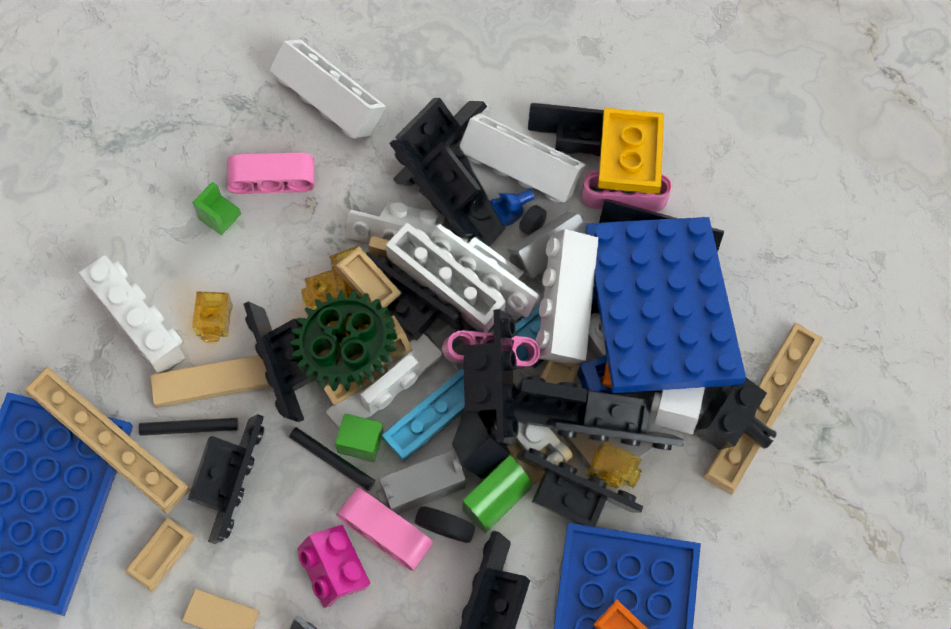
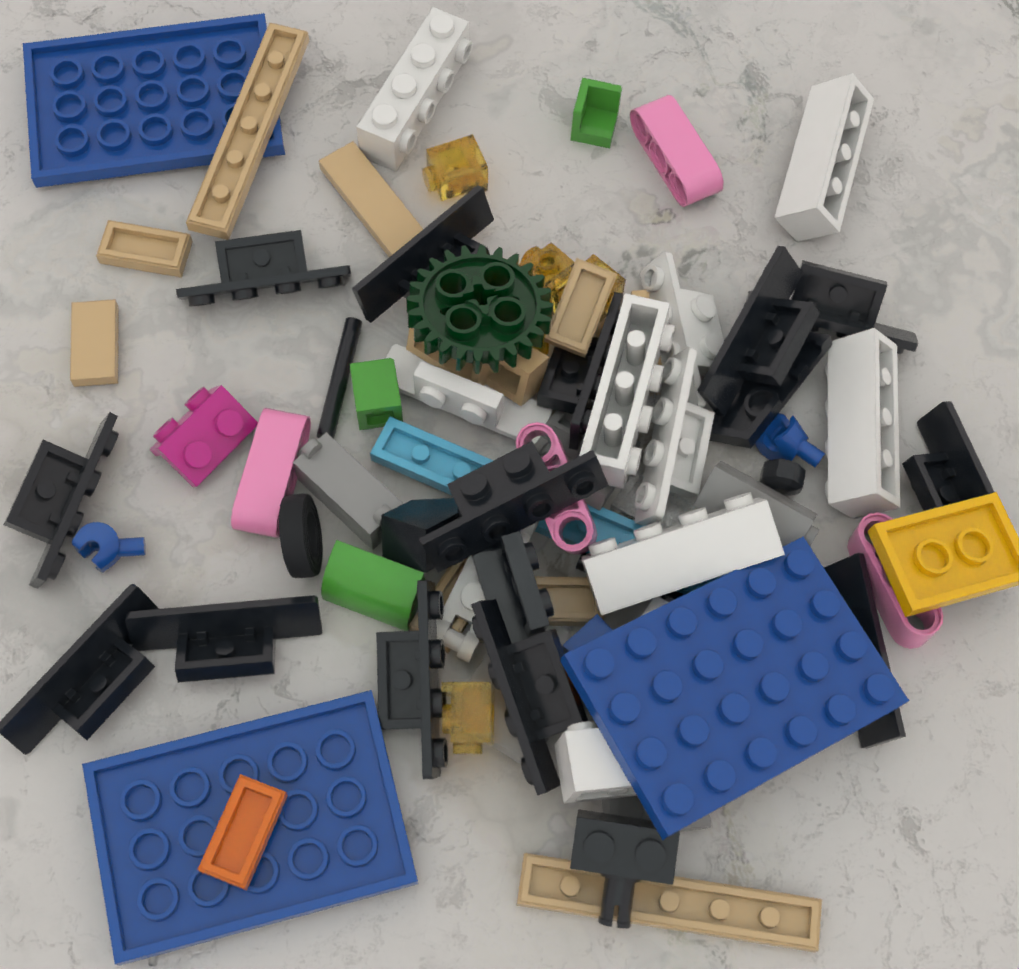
camera: 65 degrees right, 0 degrees up
(188, 426) = (311, 210): black bar -> none

